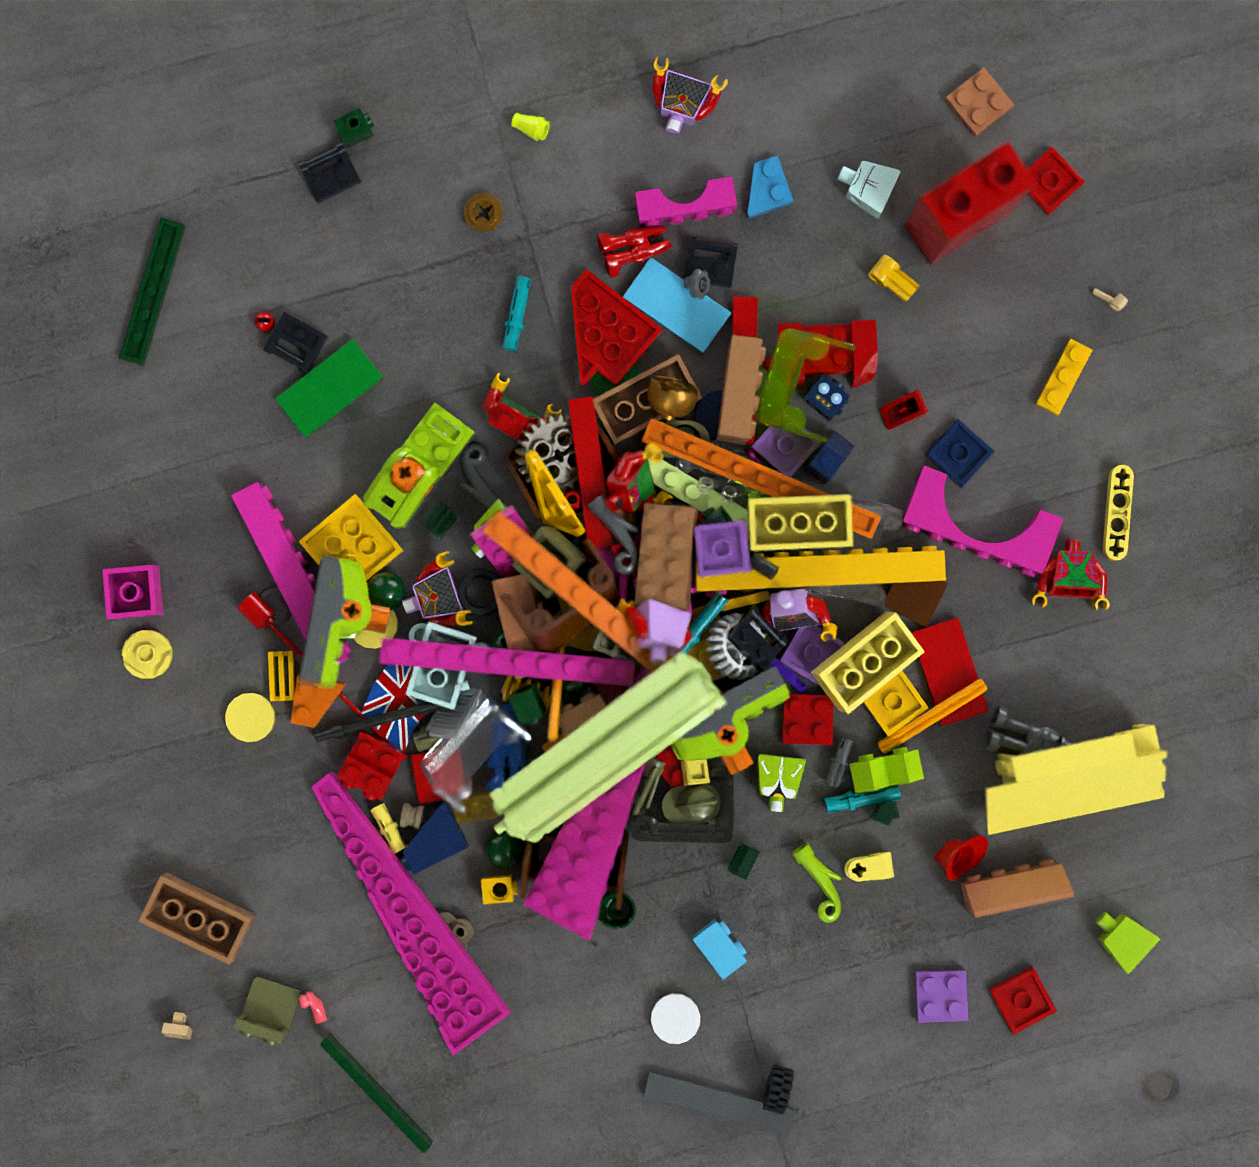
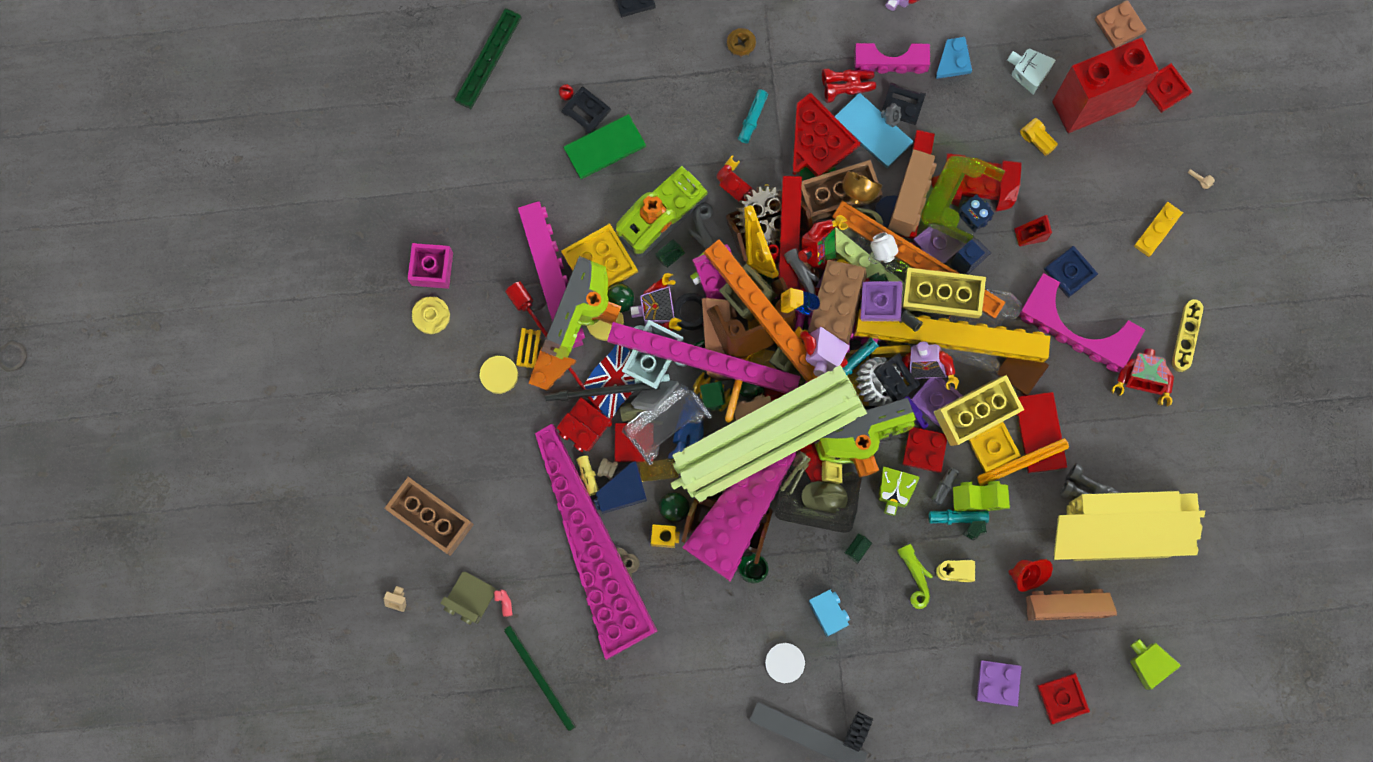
camera: 15 degrees right, 10 degrees down
(622, 568) = (799, 300): none -> leg
(715, 473) = (884, 247): none -> white head

